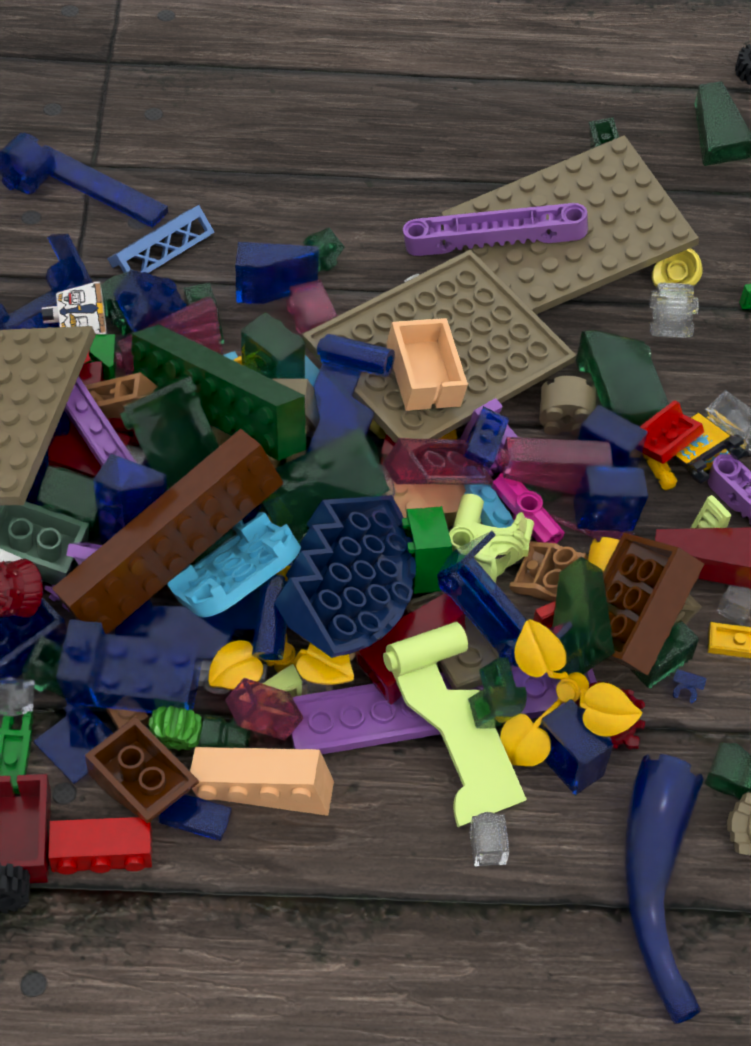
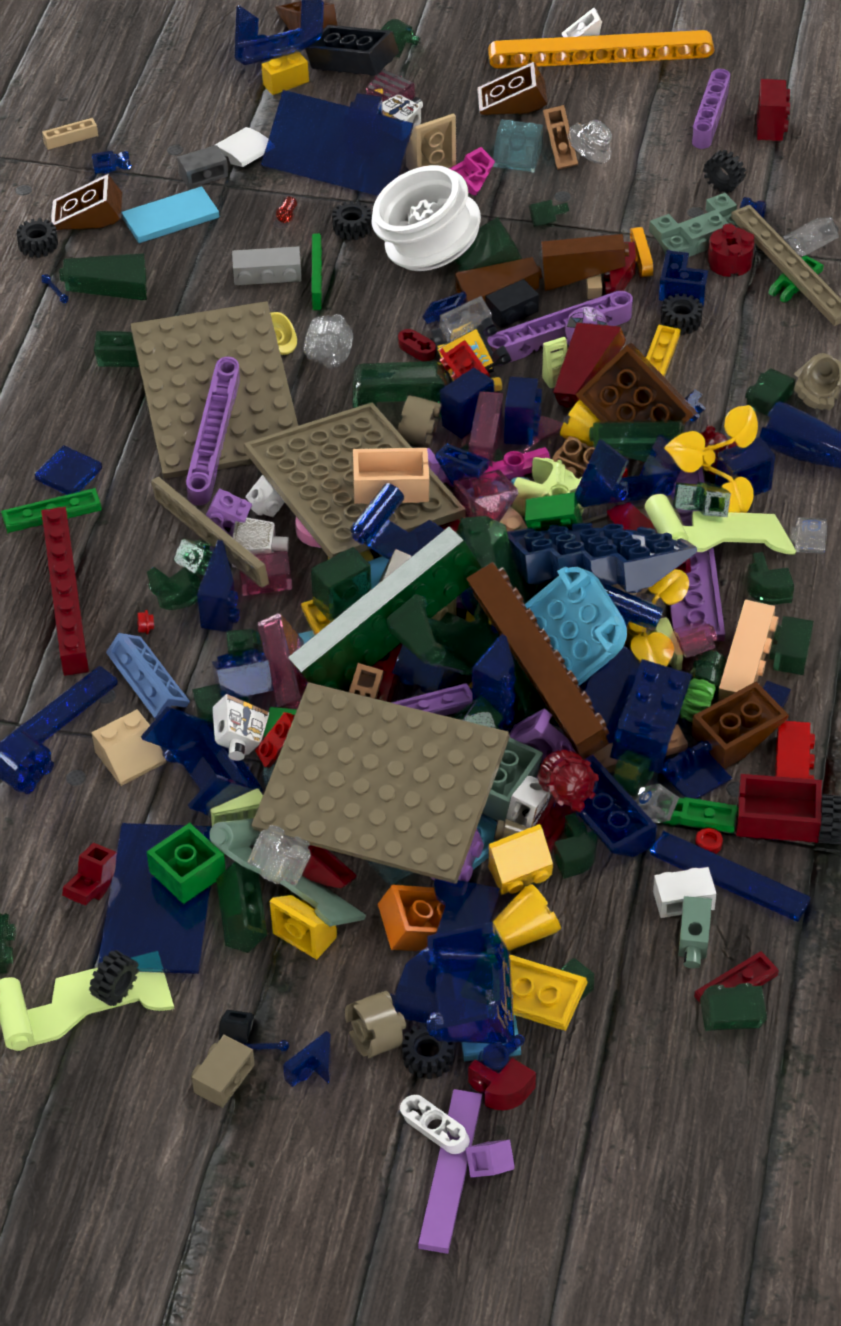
camera: 75 degrees left, 5 degrees down
(59, 221) = (124, 751): none -> tan slope
(231, 230) = (145, 622): none -> red plate
(258, 162) = (64, 591): none -> dark red brick
(270, 227) = (174, 592): none -> clear green brick
(291, 832) = (792, 645): none -> clear green brick
(344, 251) = (209, 531): none -> dark tan tile
(352, 288) = (259, 537): none -> white torso
(374, 142) = (31, 515): none -> green tile
(374, 255) = (227, 509): none -> medium lavender tile
(391, 796) = (768, 585): none -> clear green brick
(429, 144) = (68, 471): none -> clear blue tile
(680, 101) = (46, 279): none -> clear blue hinge
(704, 395) = (416, 345): none -> dark red beam

